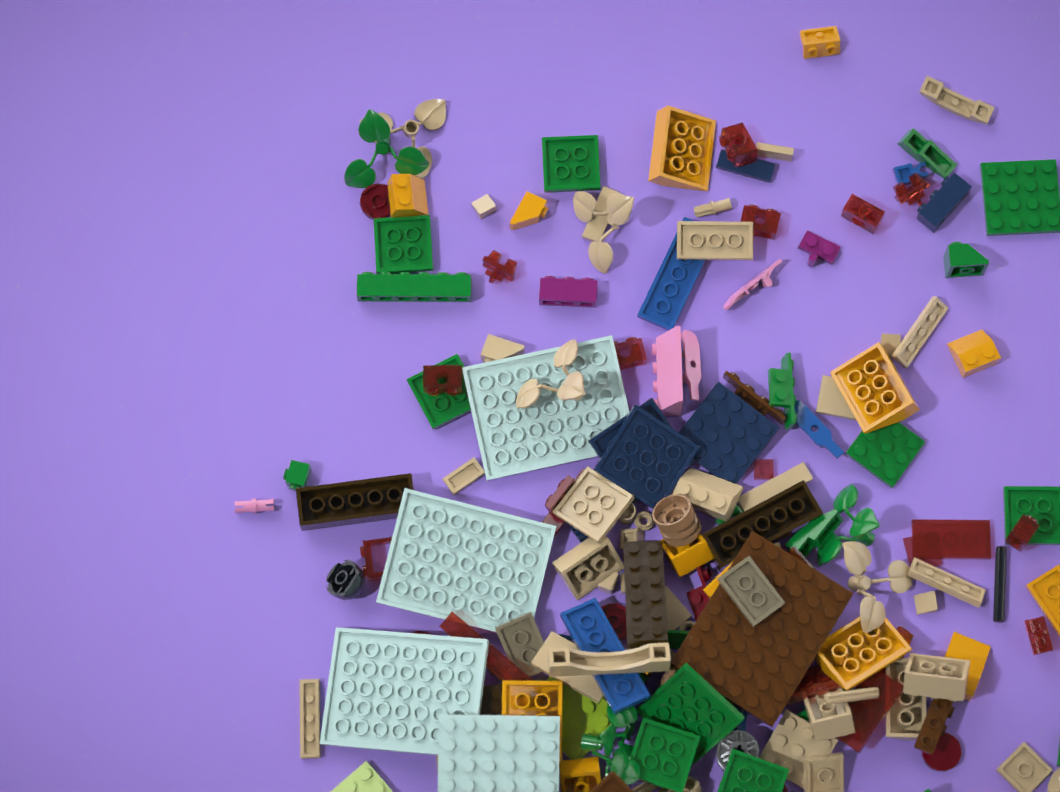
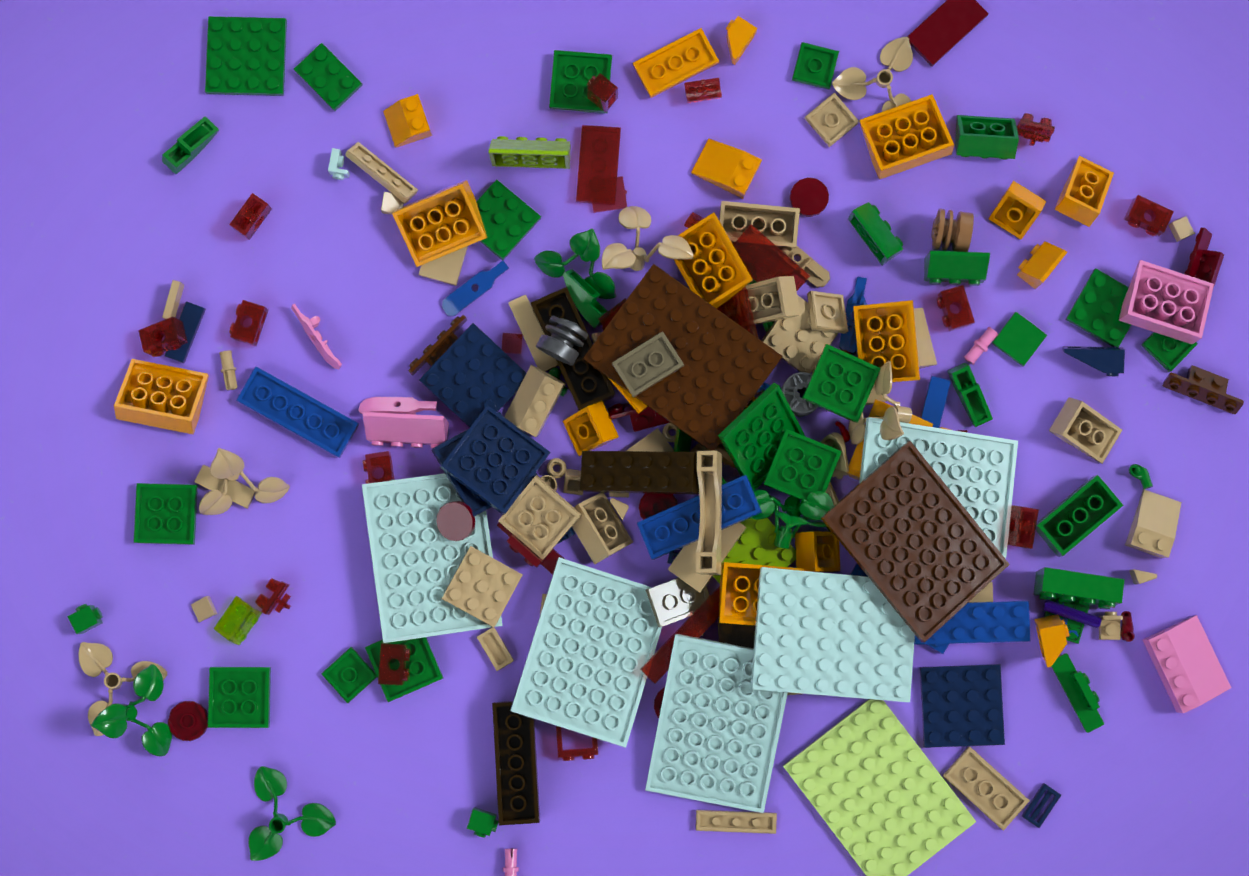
camera: 90 degrees left, 10 degrees up
(272, 277) = (265, 840): none -> green plant
(345, 580) = (598, 777): black cylinder -> none
(407, 195) = (186, 689): light orange slope -> none
(414, 287) = (288, 688): green brick -> none
(430, 342) = (349, 675): none -> green tile
(467, 101) = (85, 618): none -> green brick
(474, 236) = (237, 621): none -> clear neon green bracket
(499, 348) = (365, 602): tan slope -> none
(522, 456) = (482, 586): none -> tan plate
(529, 211) = (215, 561): light orange slope -> none
(568, 292) = (307, 527): magenta brick -> none
(570, 389) = (419, 529): tan plant -> none
(583, 425) = (455, 521): none -> tile
(676, 520) = (562, 434): medium nougat wheel -> none
(714, 240) = (266, 370): tan tile -> none
(767, 509) = (561, 341): none -> flat silver wheel
(781, 389) = (432, 316): green bracket -> none
(818, 248) = (282, 265): magenta plate -> none
(820, 42) = (55, 241): light orange bracket -> none
(851, 695) = (758, 275): tan axle -> none
(870, 754) = (818, 275): none -> tan piece
(904, 171) = (211, 167): blue plate -> none
(913, 192) = (231, 163): clear red hips -> none
(924, 288) = (336, 162): none -> light aqua bracket
(925, 603) = (661, 196): tan slope -> none
(934, 725) = (778, 195): reddish brown bracket -> none
(936, 677) = (744, 190): tan slope -> none
(943, 202) = (244, 134): dark blue brick -> none
(946, 582) = (642, 173): tan tile -> none
(954, 102) = (136, 110): tan slope -> none
(954, 469) = (530, 153): none -> lime slope
(963, 261) = (311, 120): green slope -> none
(1000, 584) = (647, 122): black axle -> none
(1009, 275) = (328, 76): none -> green plate

